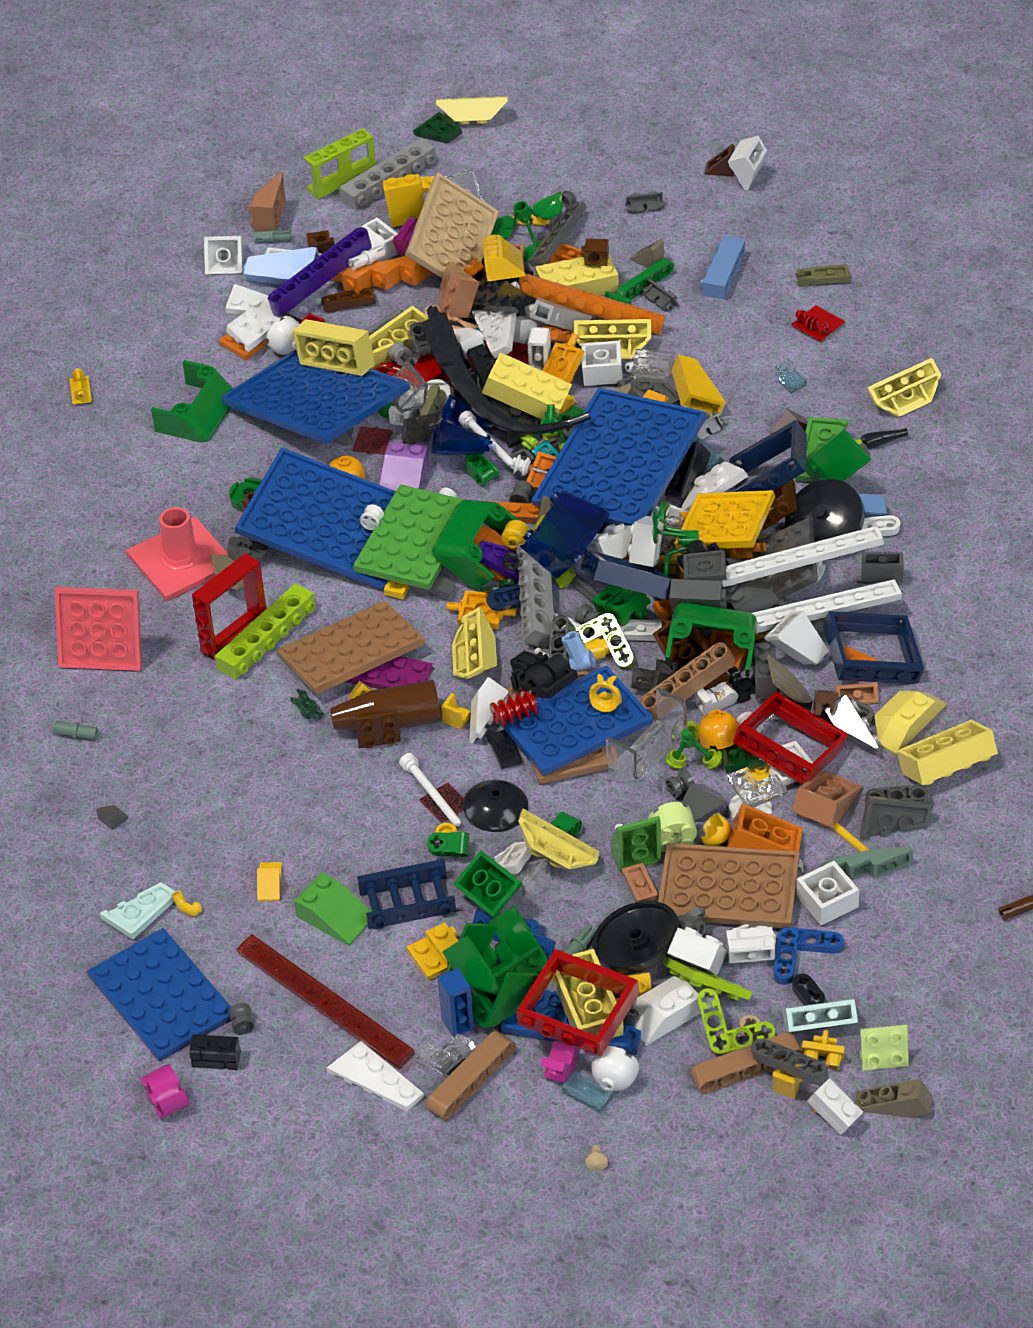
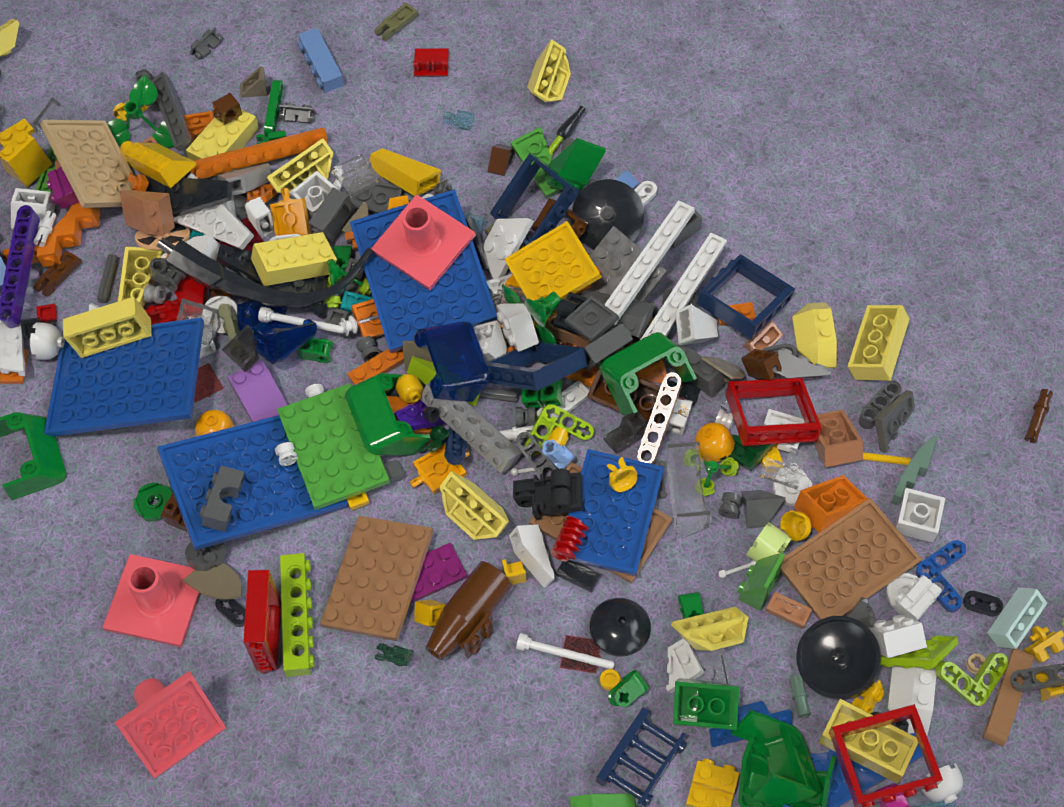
camera: 45 degrees left, 15 degrees up
(230, 600) = (228, 614): none -> black beam
(302, 502) = (216, 512): none -> dark grey arch
(590, 370) = (332, 214): none -> dark grey window
(637, 431) = (423, 242): none -> coral piece

